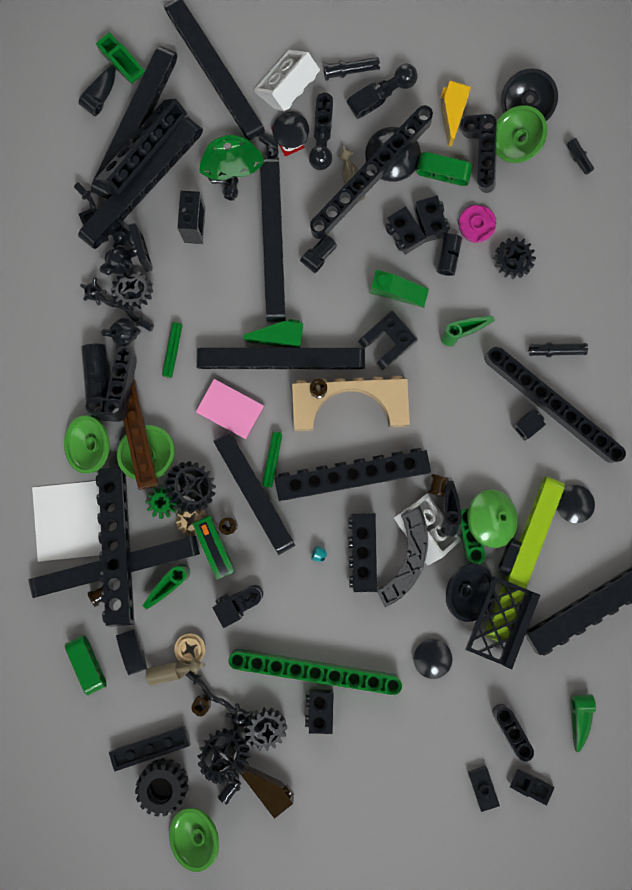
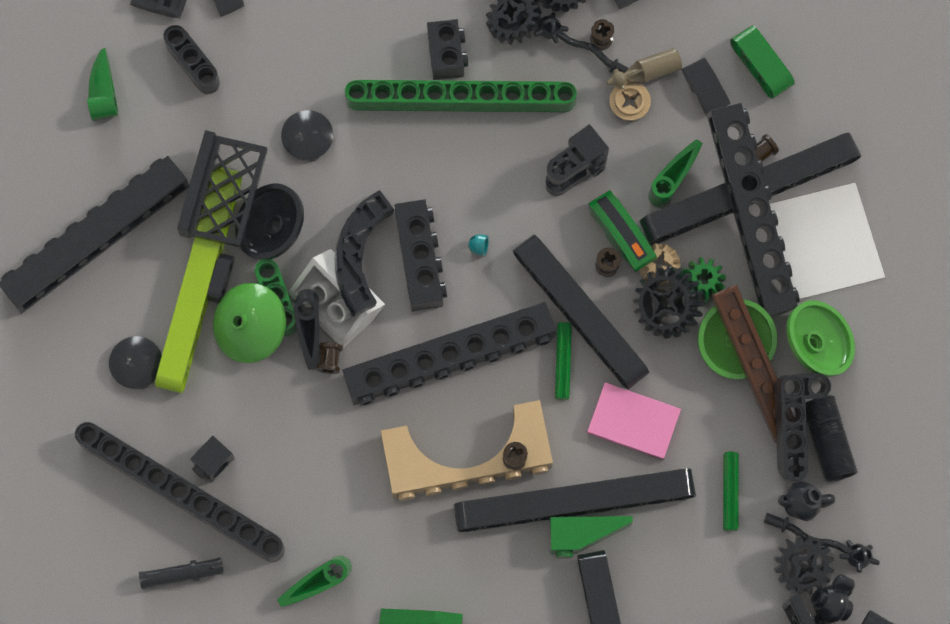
camera: 170 degrees right, 10 degrees down
(396, 331) = (414, 559): black brick -> none

